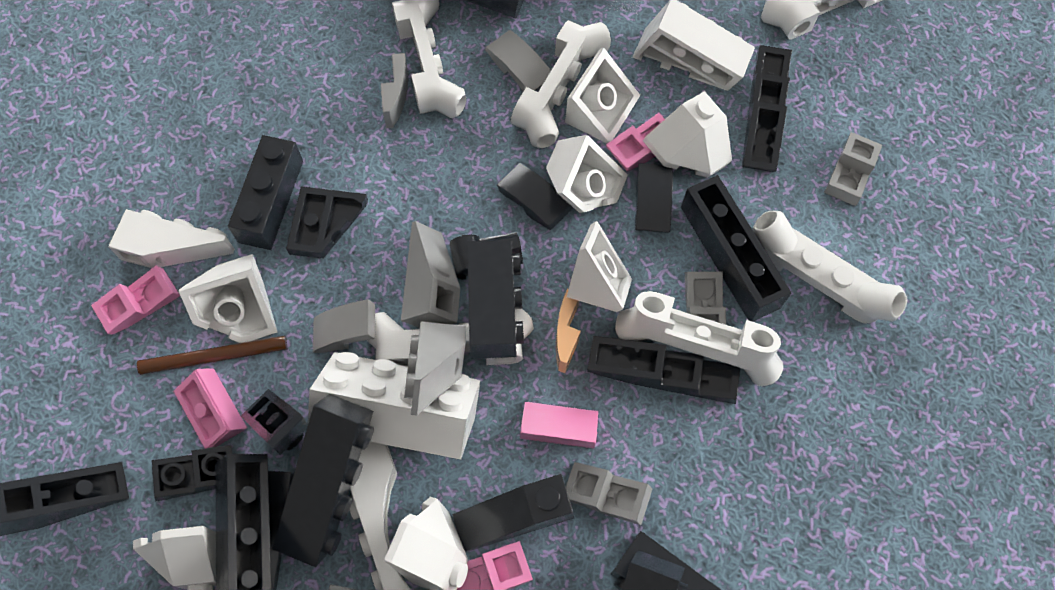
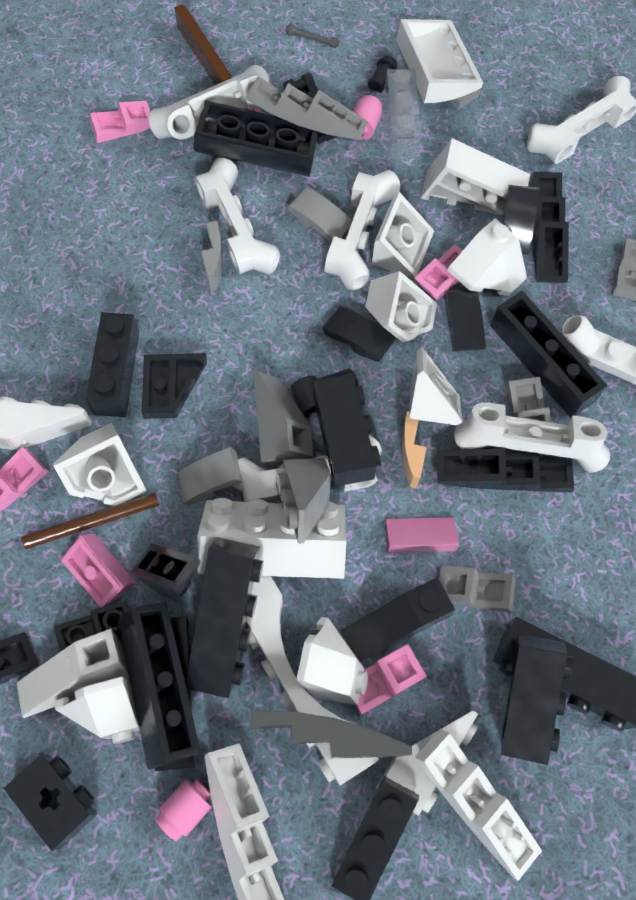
camera: 10 degrees left, 0 degrees up
(167, 506) = (75, 667): none -> white slope
(735, 91) = (520, 213): none -> black slope

